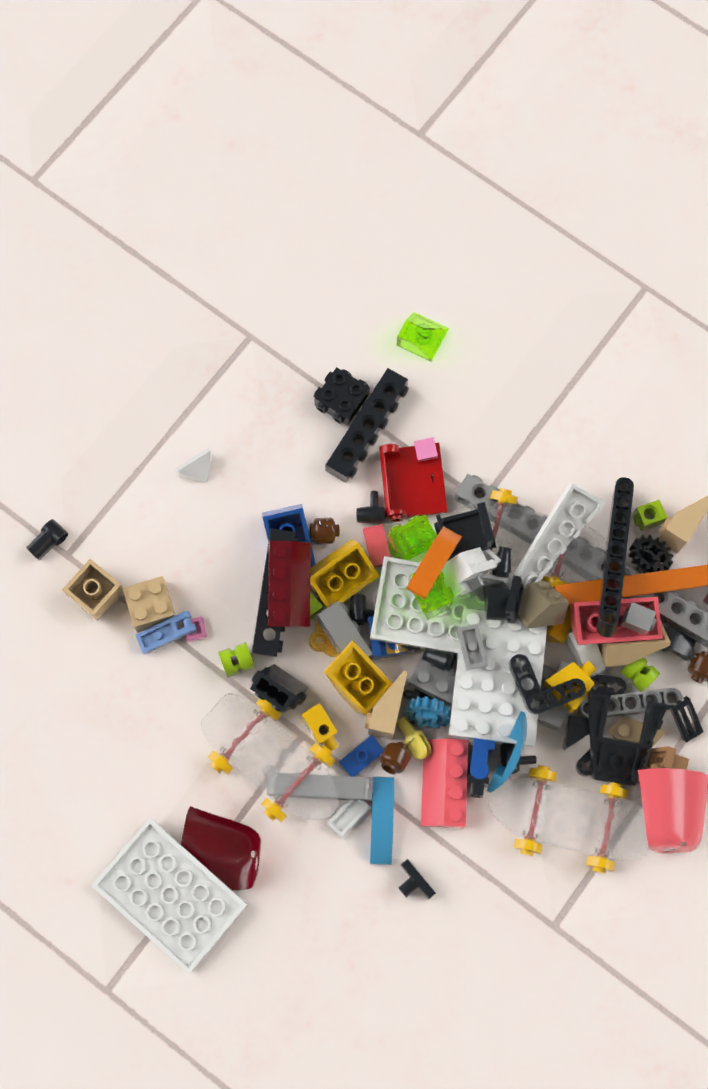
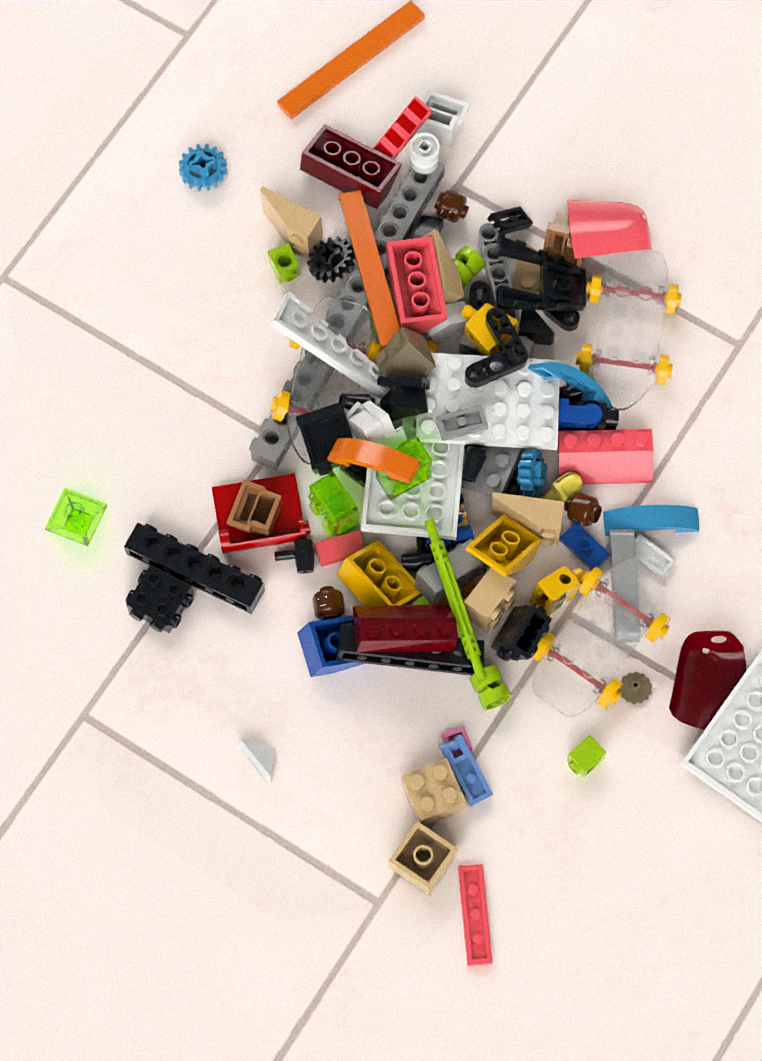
camera: 90 degrees left, 5 degrees down
(44, 630) = (475, 915): none -> coral tile
(51, 535) = (358, 920): black piece -> none
(166, 735) = (586, 756): none -> lime brick
(227, 788) = (635, 688): none -> dark tan piece
(310, 630) = (455, 600): none -> lime axle
(312, 663) = (490, 599): none -> tan brick
(411, 473) = (255, 509): none -> medium nougat plate
(414, 882) = (713, 480): black tile -> none
(426, 449) = (221, 499): bright pink tile -> none
(615, 558) = (351, 285): black beam -> none
(638, 618) = (415, 256): light grey brick -> none

